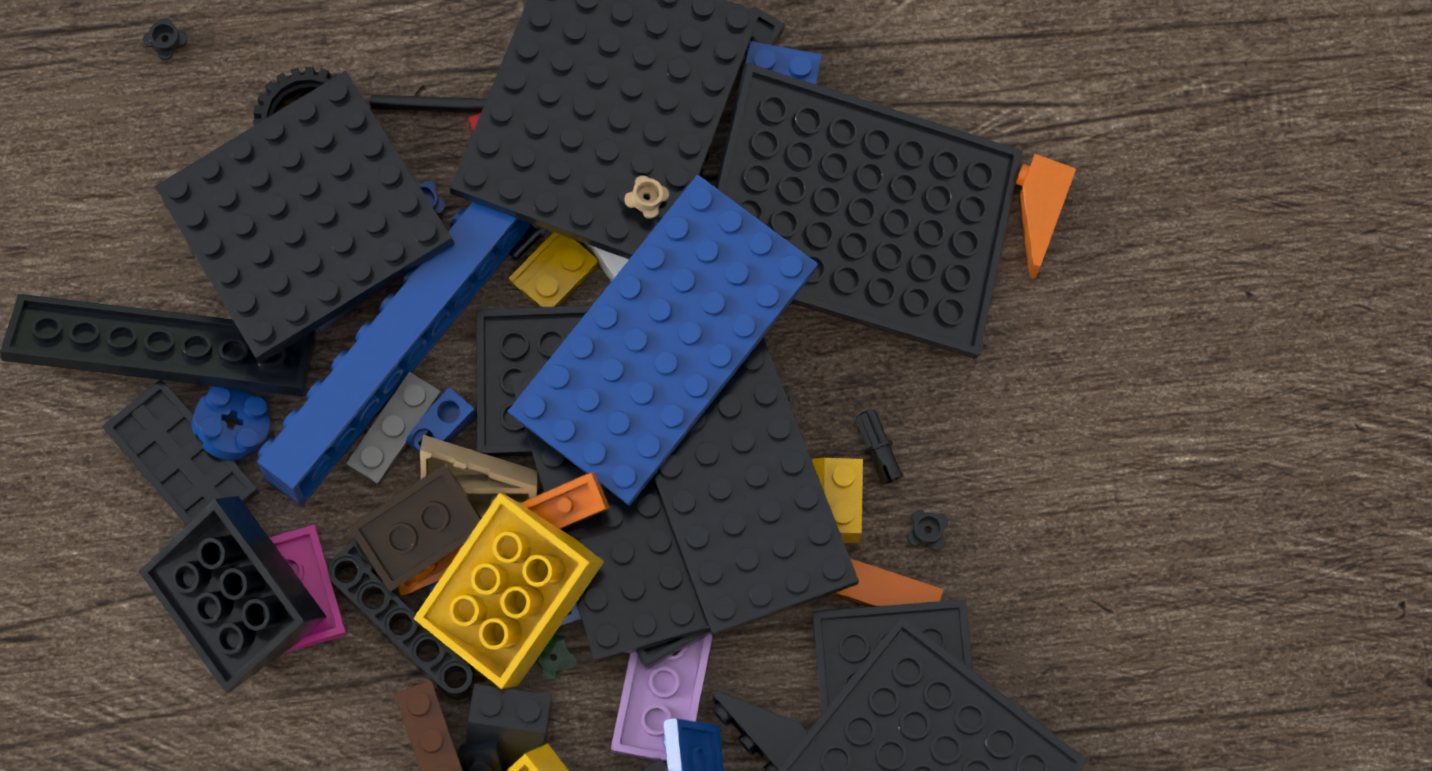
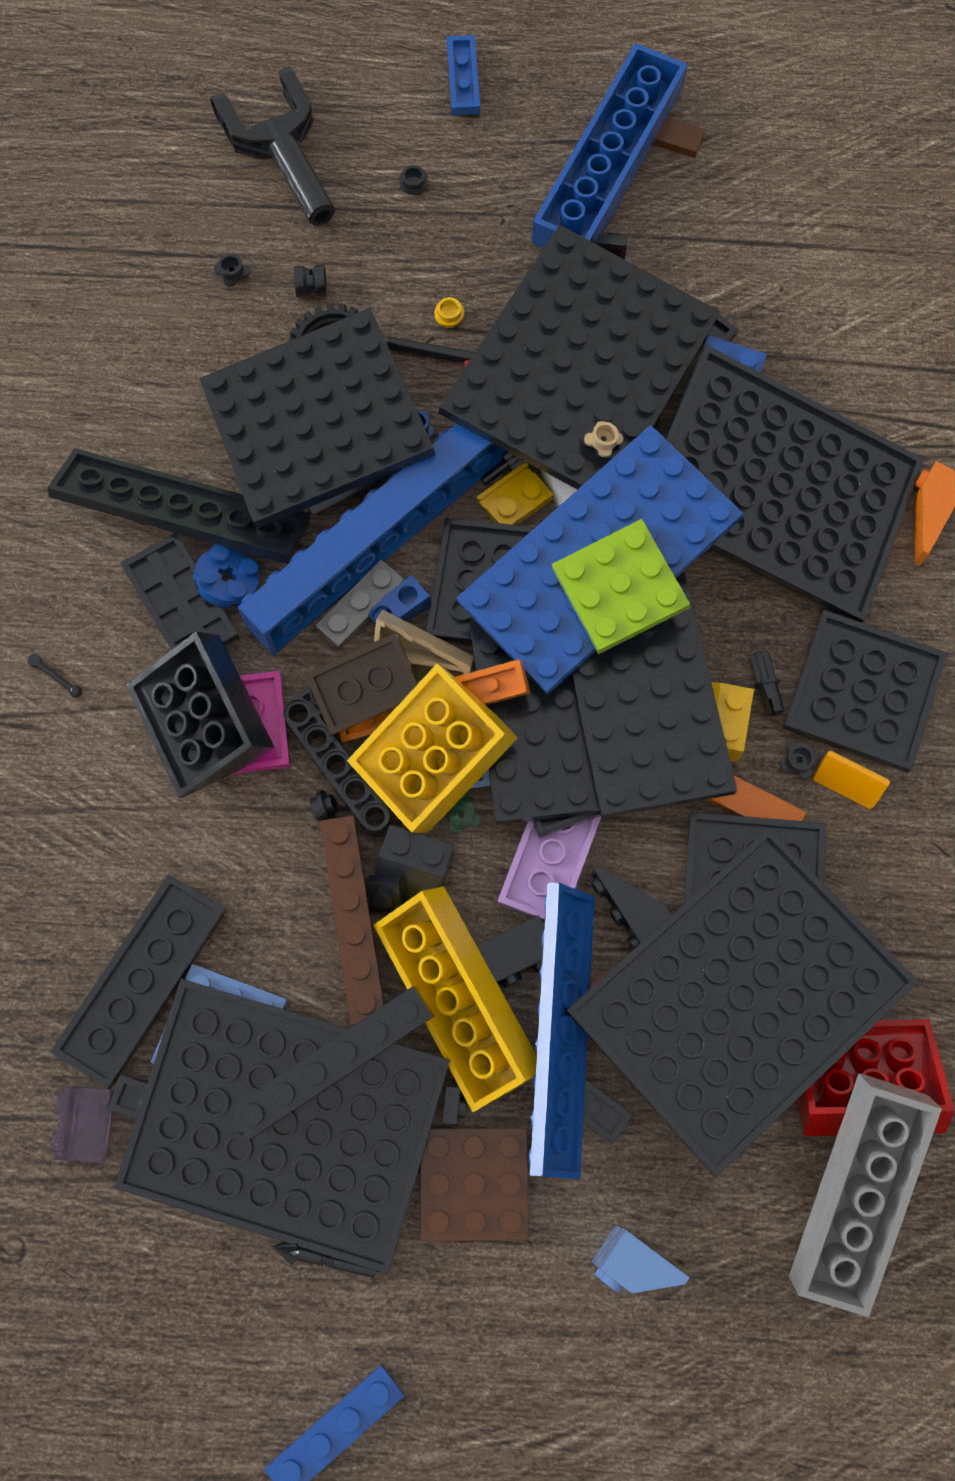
camera: 15 degrees right, 0 degrees up
(21, 559) = (36, 662): none -> black hinge
(264, 40) = (310, 280): none -> black wheel
(394, 674) = (323, 806): none -> black plate
(438, 54) = (449, 312): none -> yellow plate
(691, 371) = (620, 586): none -> lime plate
(988, 544) = (850, 779): none -> light orange slope
(991, 437) = (865, 691): none -> black plate

